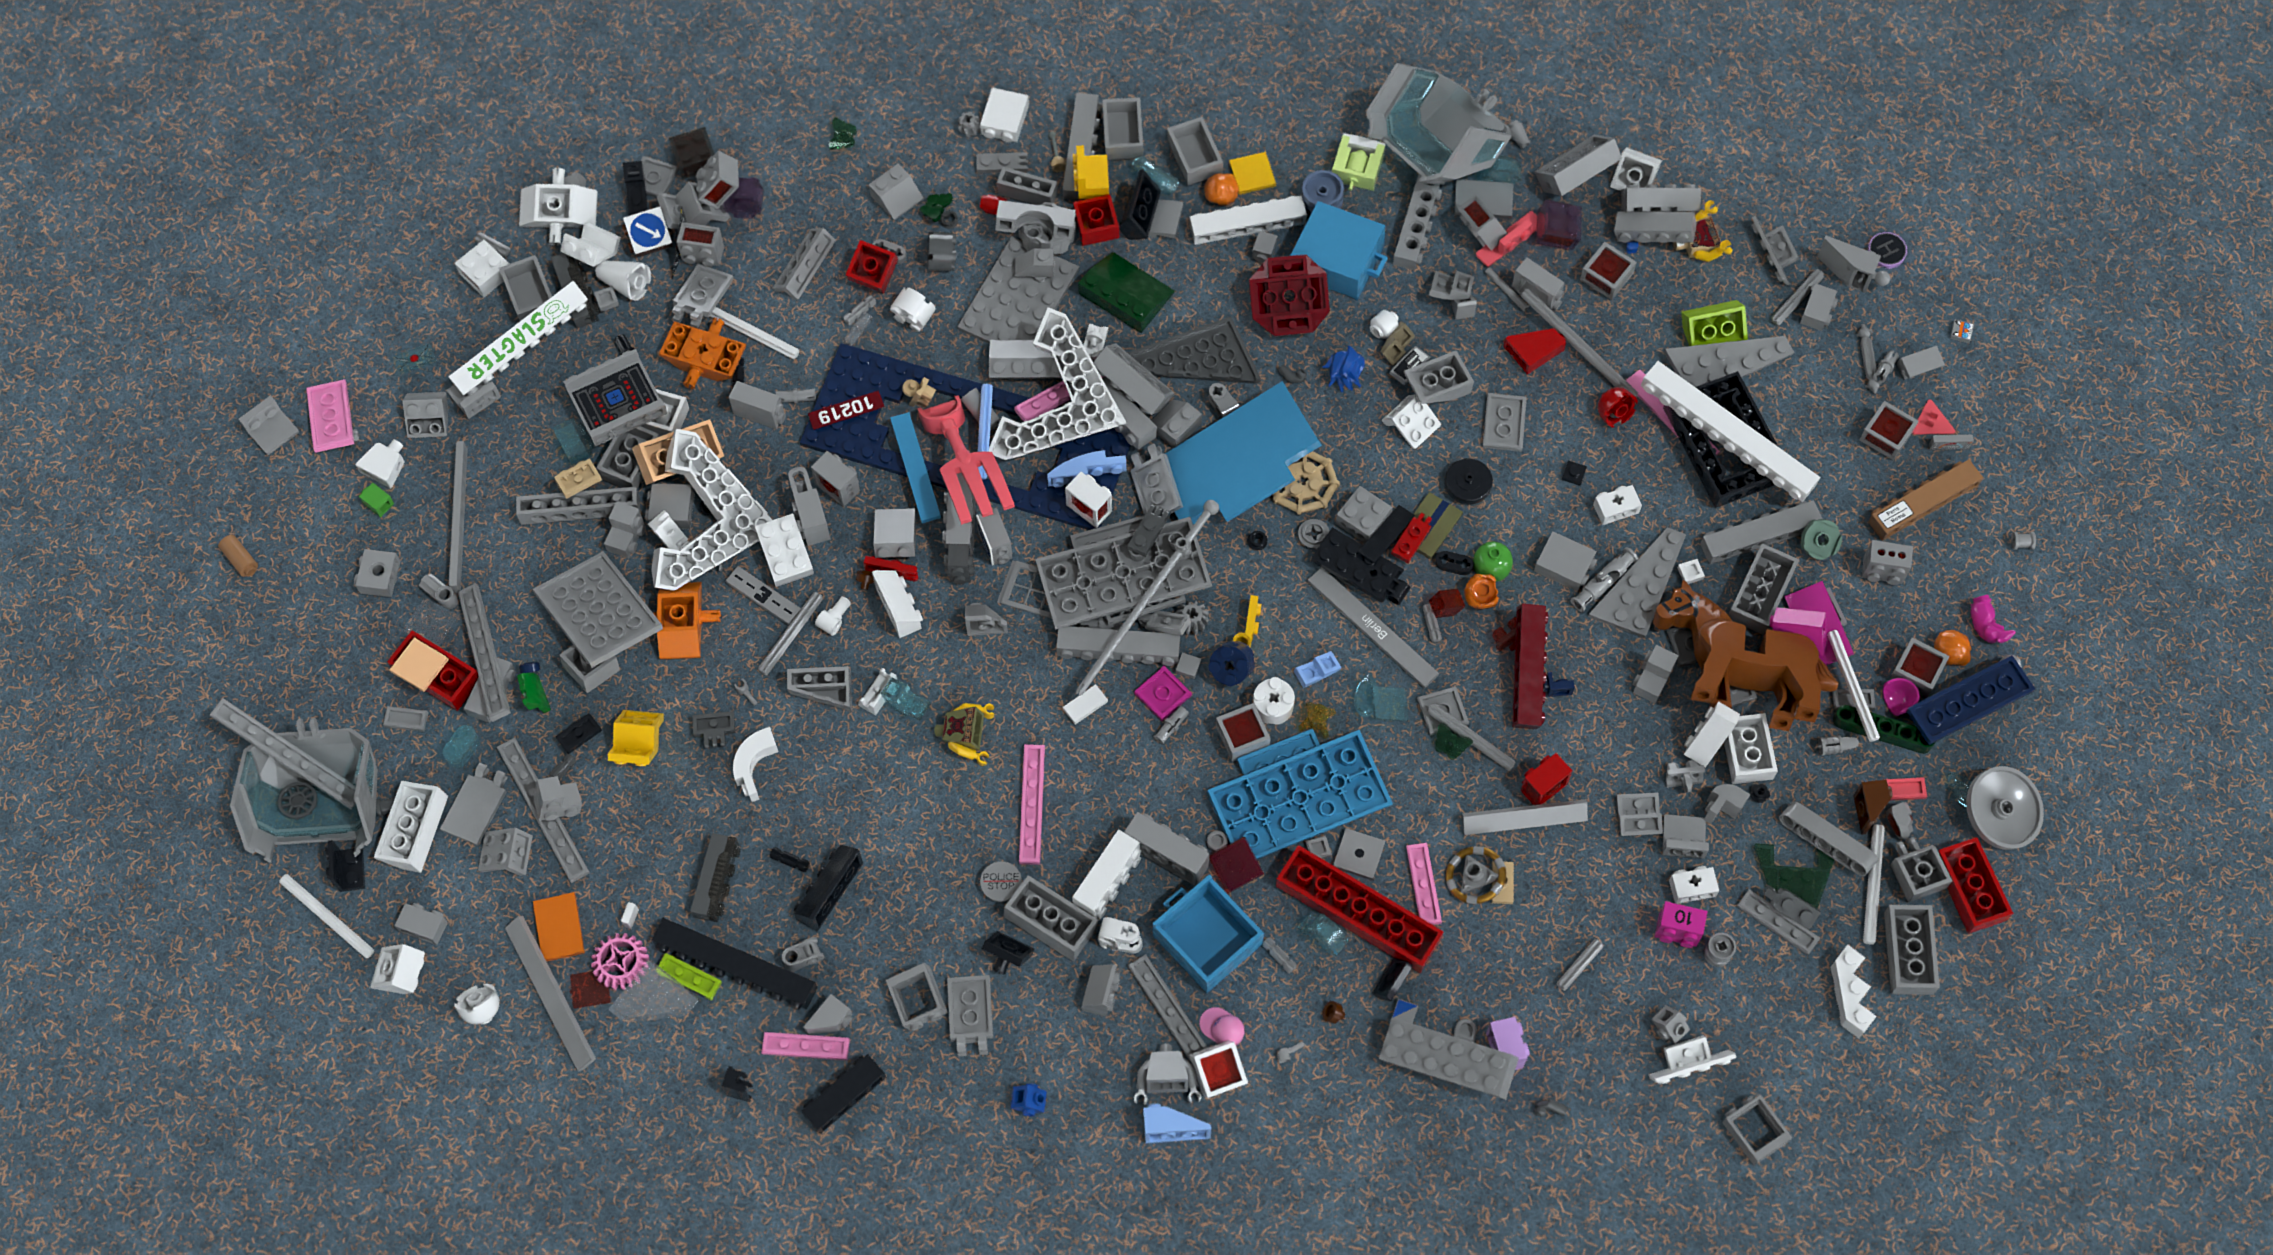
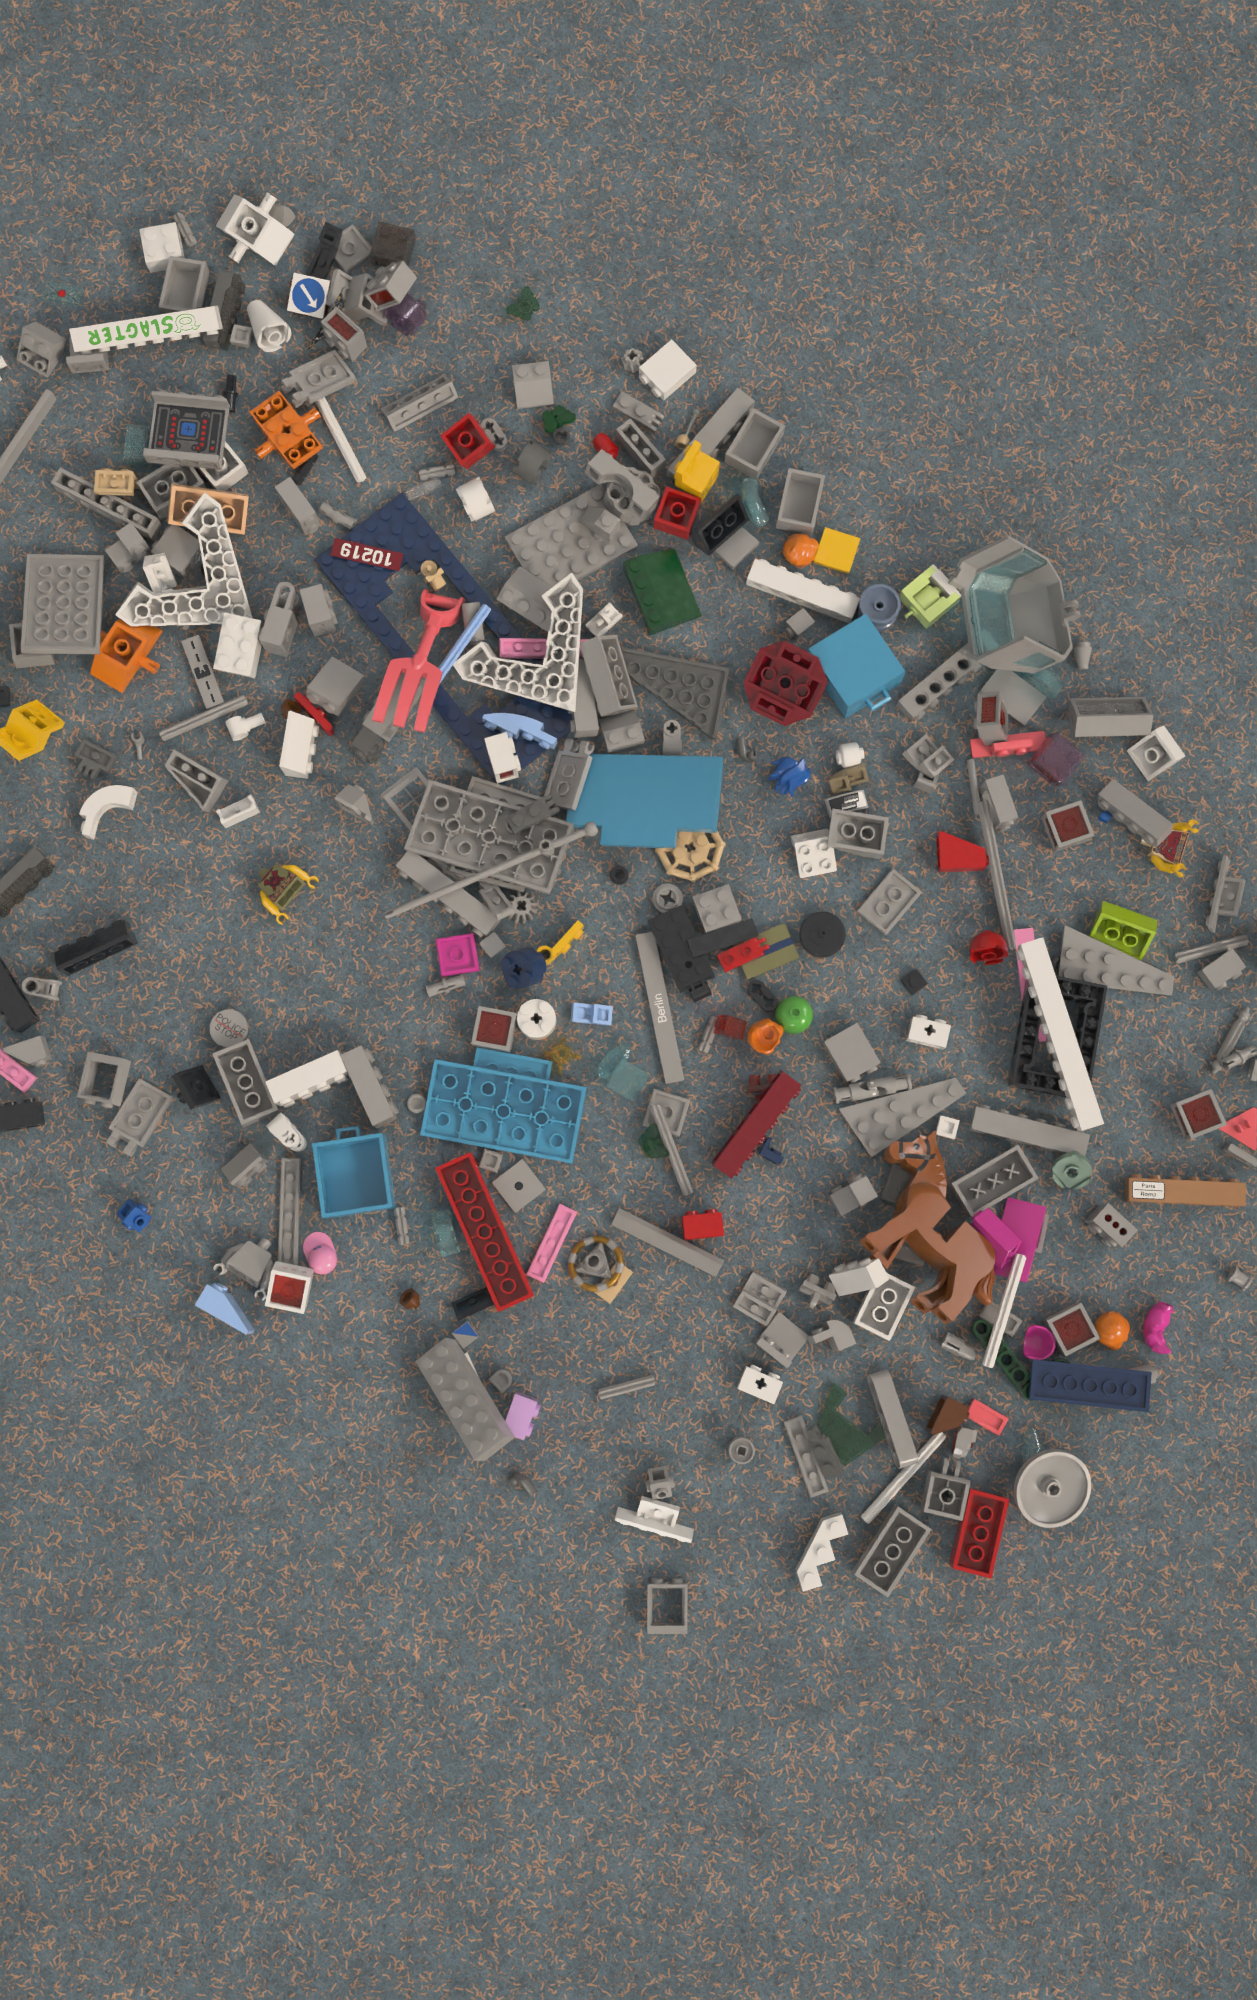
camera: 30 degrees right, 15 degrees up
(593, 246) = (257, 283): white panel -> none
(789, 859) = (83, 904): black axle -> none
(903, 700) = (251, 831): clear light blue brick -> none
(915, 467) = (388, 638): dark azure tile -> none
(994, 538) = (408, 743): light grey piece -> none
(1032, 805) = (295, 980): bright pink tile -> none
(1085, 704) = (393, 926): white tile -> none
(1236, 865) = (416, 1133): clear red tile -> none
(1283, 1054) = (350, 1306): light grey hand -> none
(1661, 199) = (1158, 791): light grey wedge -> none
(1680, 924) = (724, 1411): dark pink brick -> none
(1757, 797) = (867, 1339): black plate -> none

